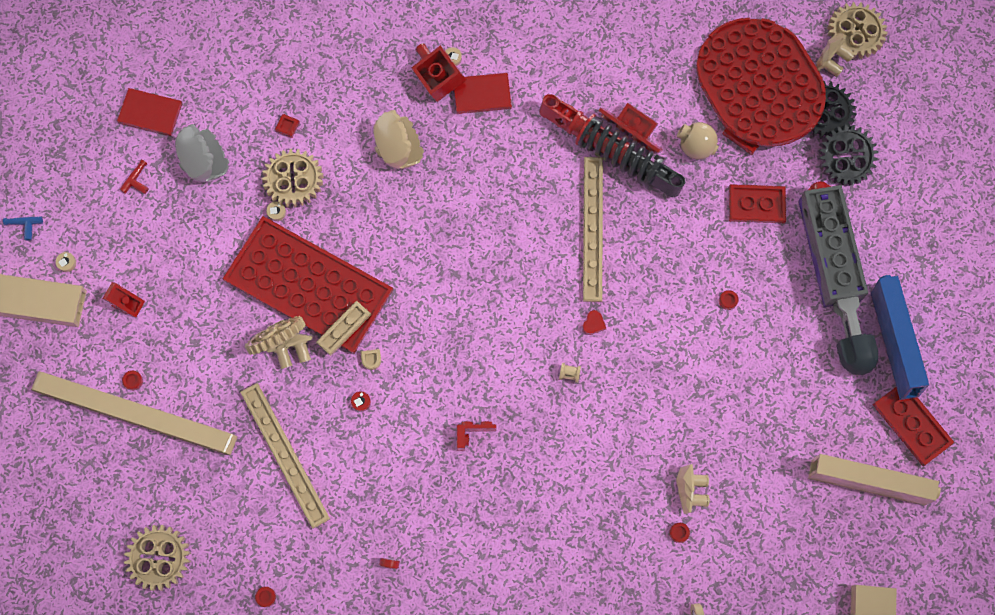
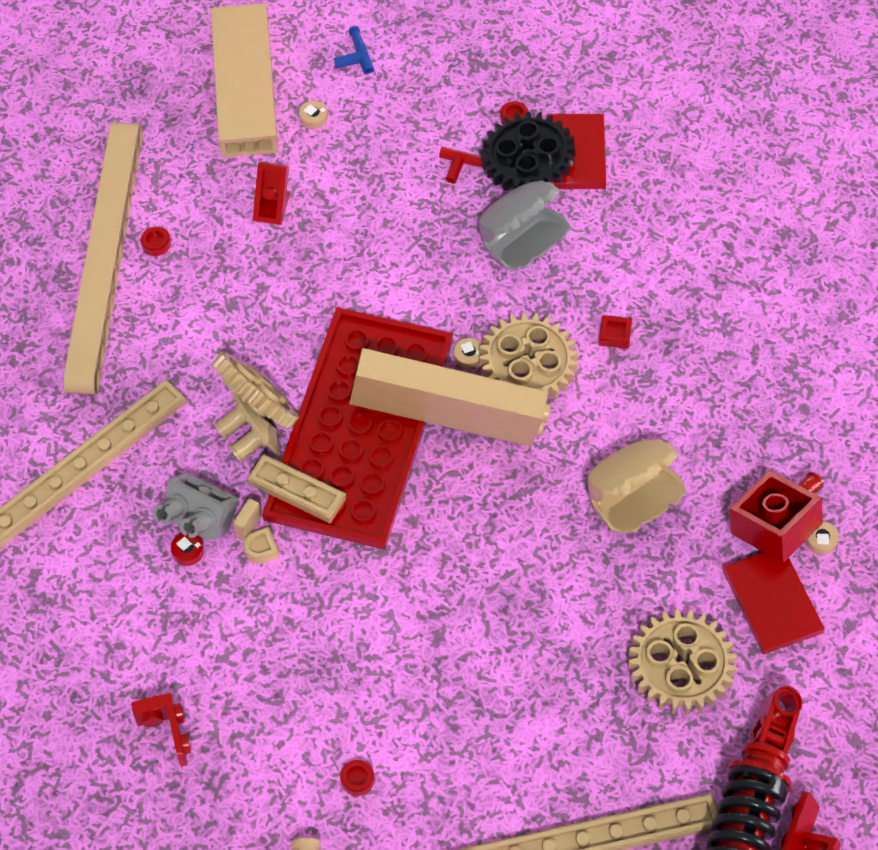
camera: 80 degrees right, 15 degrees down
(109, 140) = (510, 109): none -> red tile
(131, 146) = (528, 151): none -> black gear
(314, 226) = (449, 397): none -> tan brick
(340, 387) = (196, 507): none -> light grey brick
(354, 362) = (247, 519): none -> tan tile
(513, 164) = (706, 647): none -> tan gear
(528, 336) = (357, 777): none -> red tile

